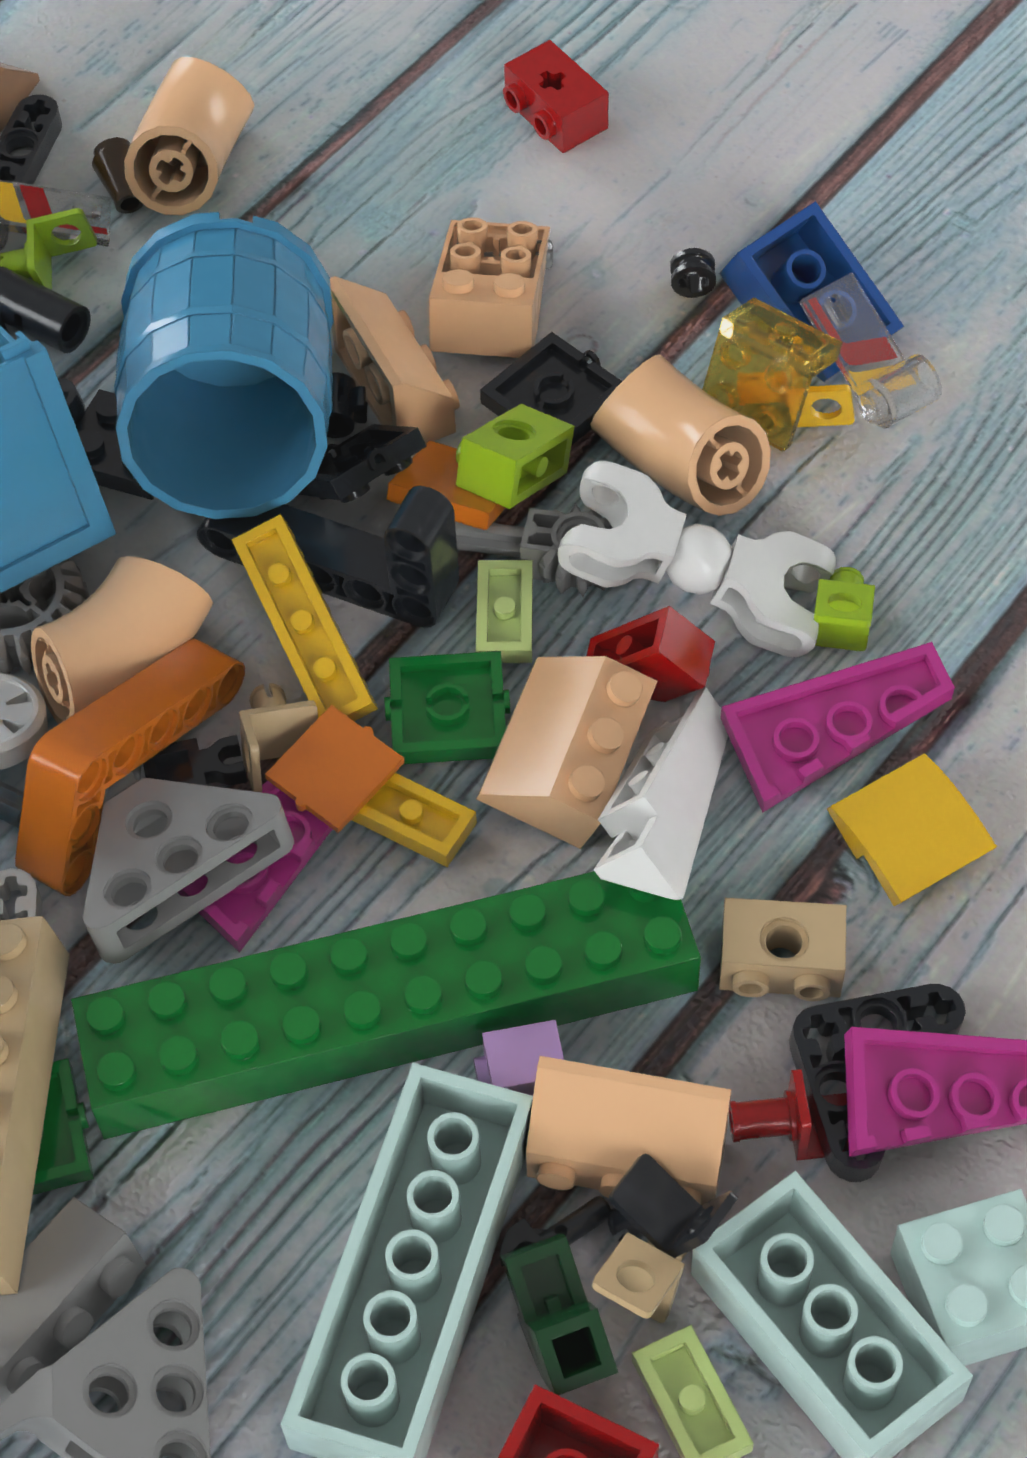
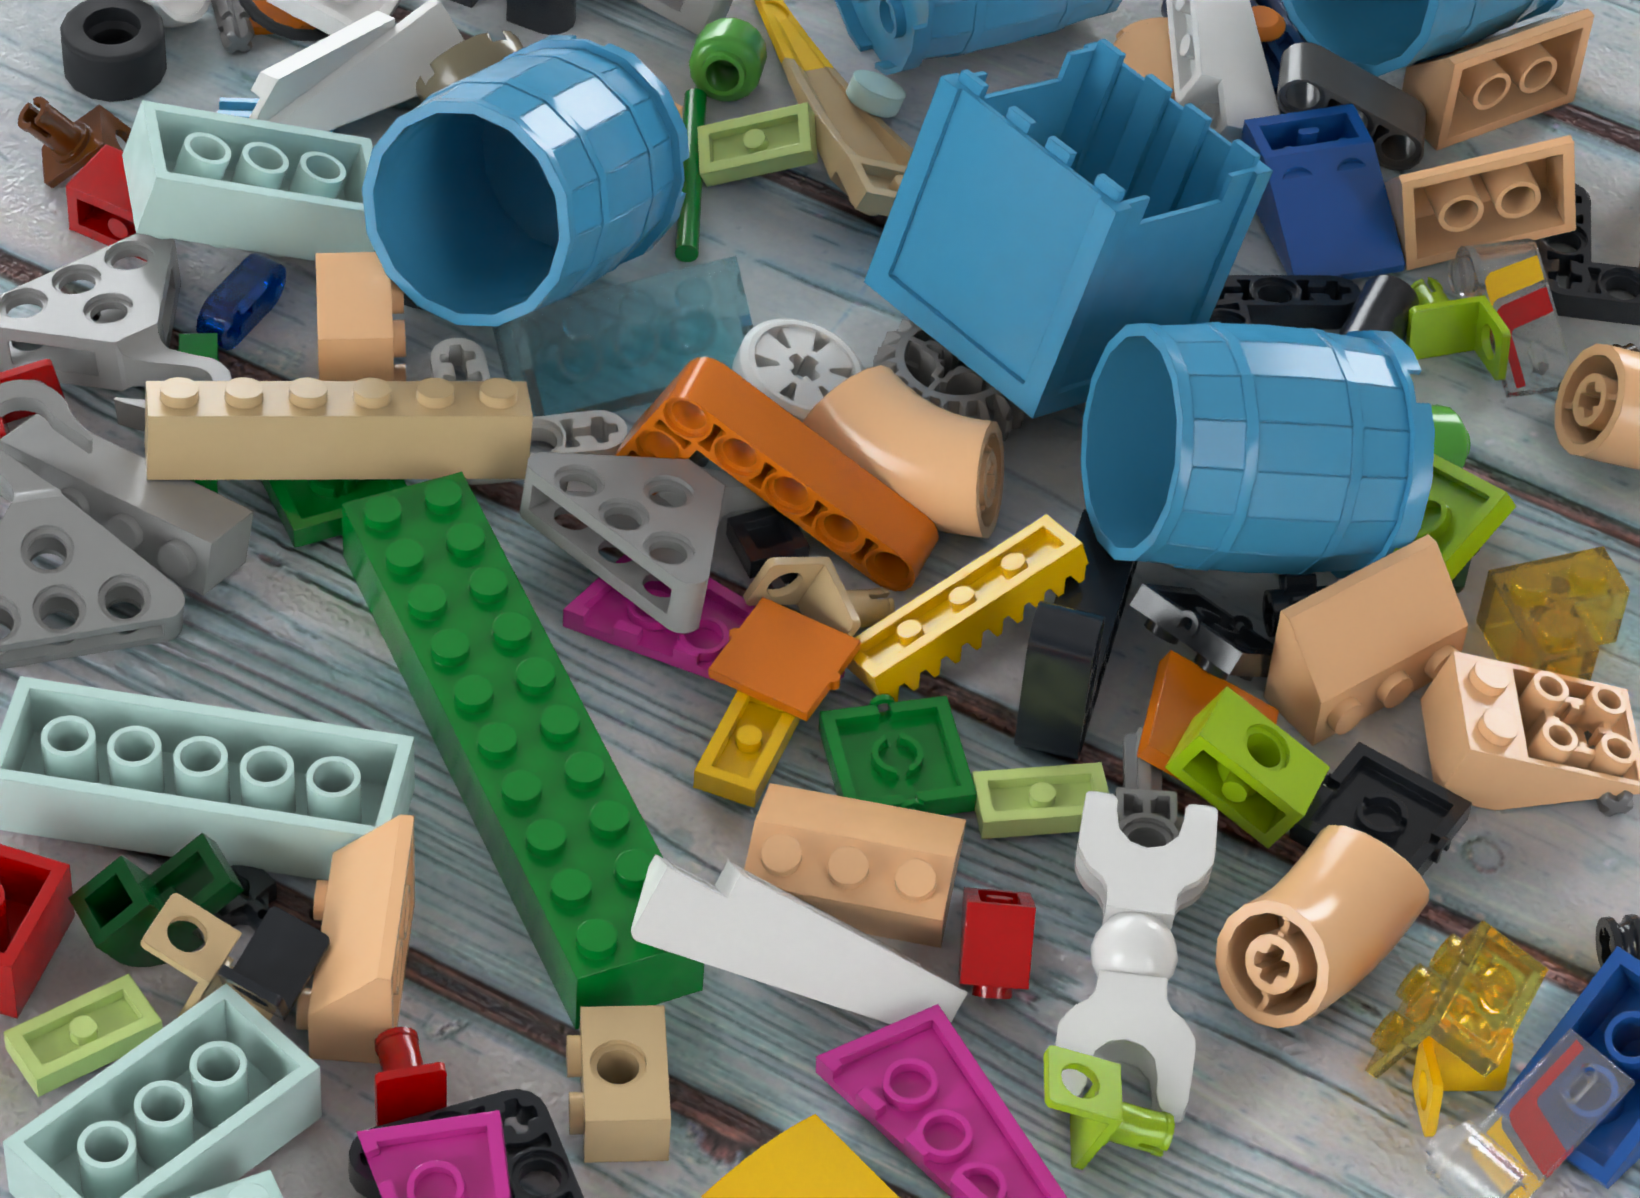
camera: 75 degrees right, 10 degrees down
(385, 256) = (1554, 611): none -> clear yellow brick
(514, 1053) = (450, 865): lavender brick -> none

